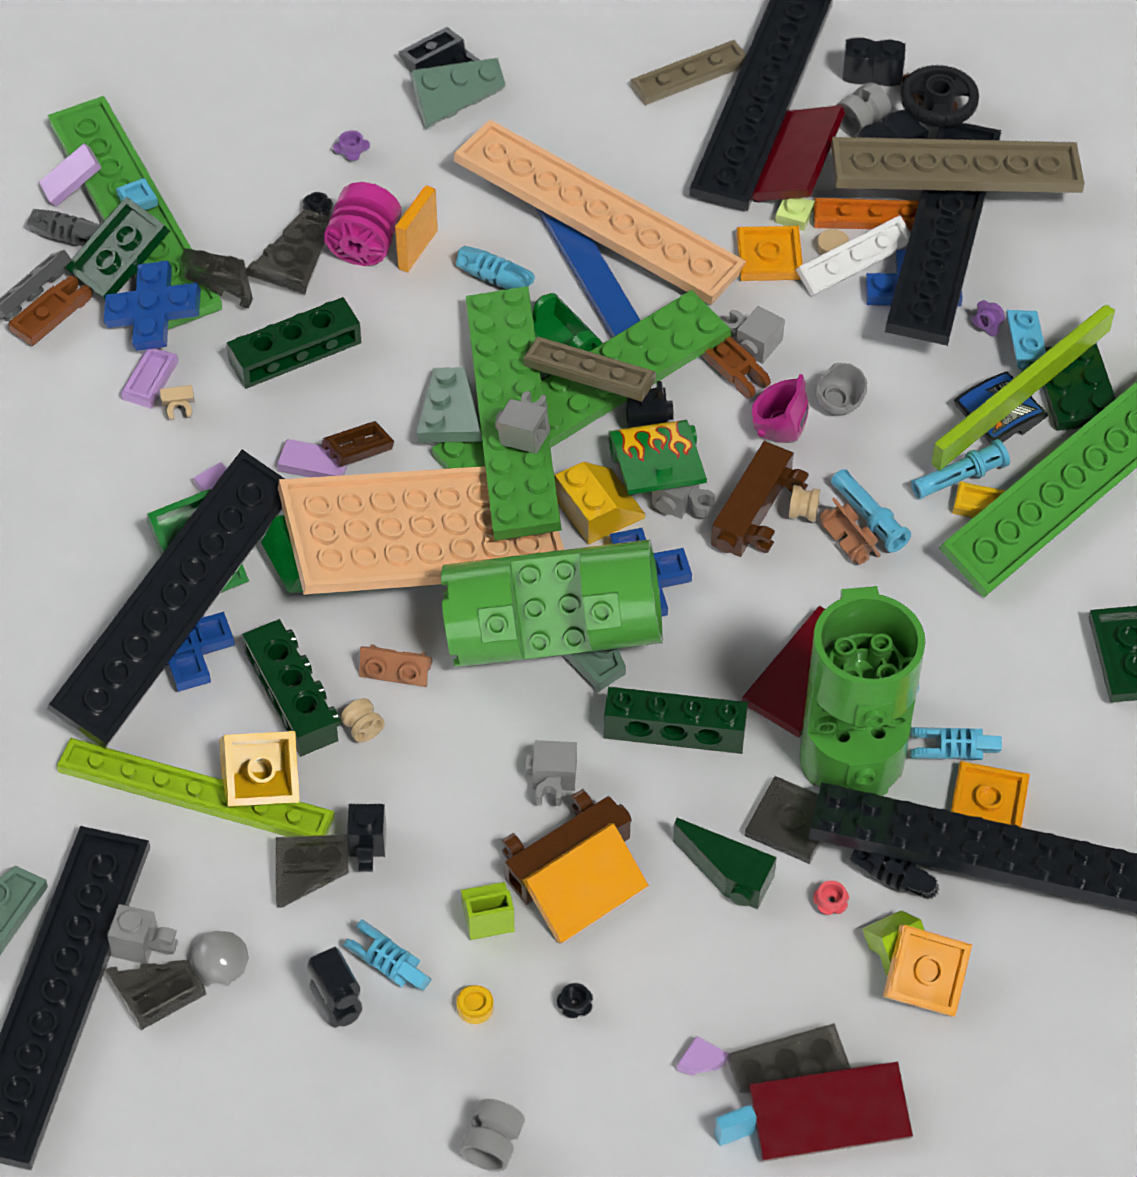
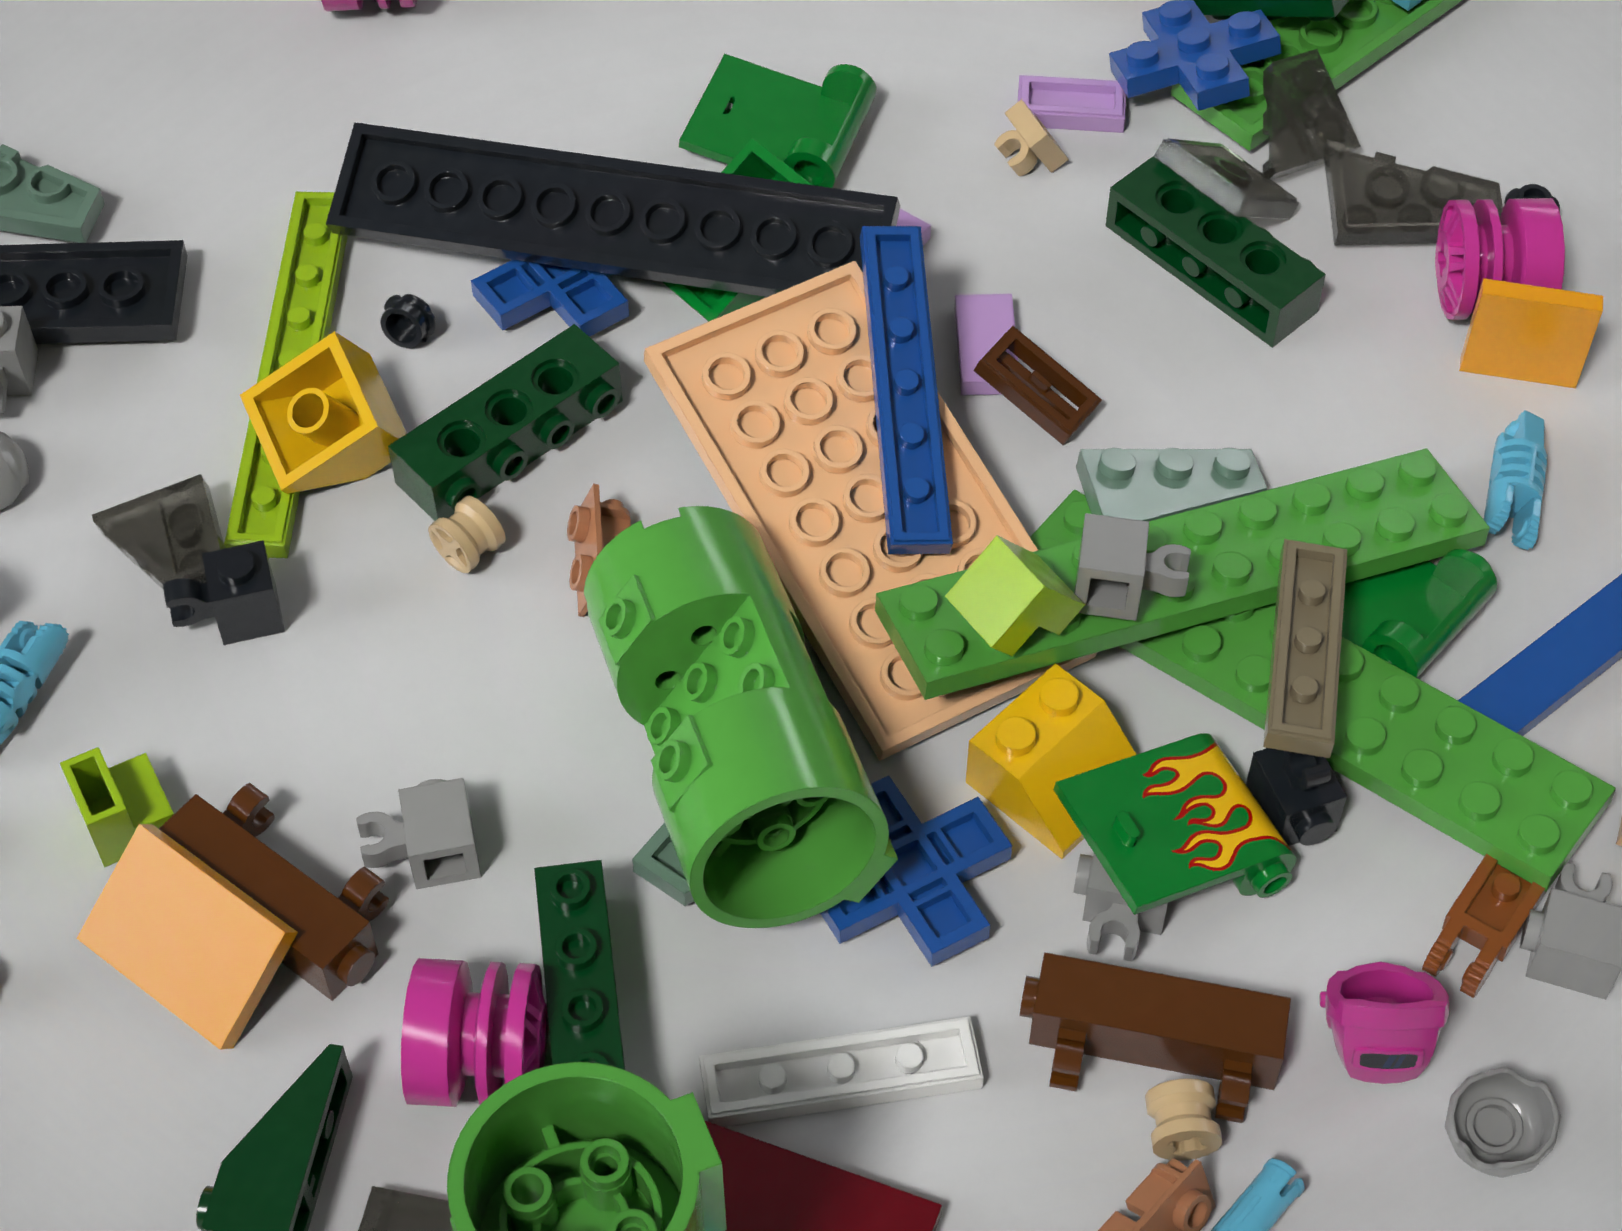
camera: 75 degrees right, 0 degrees up
(106, 512) = (792, 118): none -> green door
(188, 724) = (407, 320): none -> black plate
(252, 319) = (1227, 179): none -> clear smoke tile
(367, 483) = (905, 391): none -> blue tile
(533, 467) = (1011, 595): none -> lime piece
(687, 760) = (469, 1033): none -> dark pink wheel
(736, 632) = (841, 1072): none -> white tile

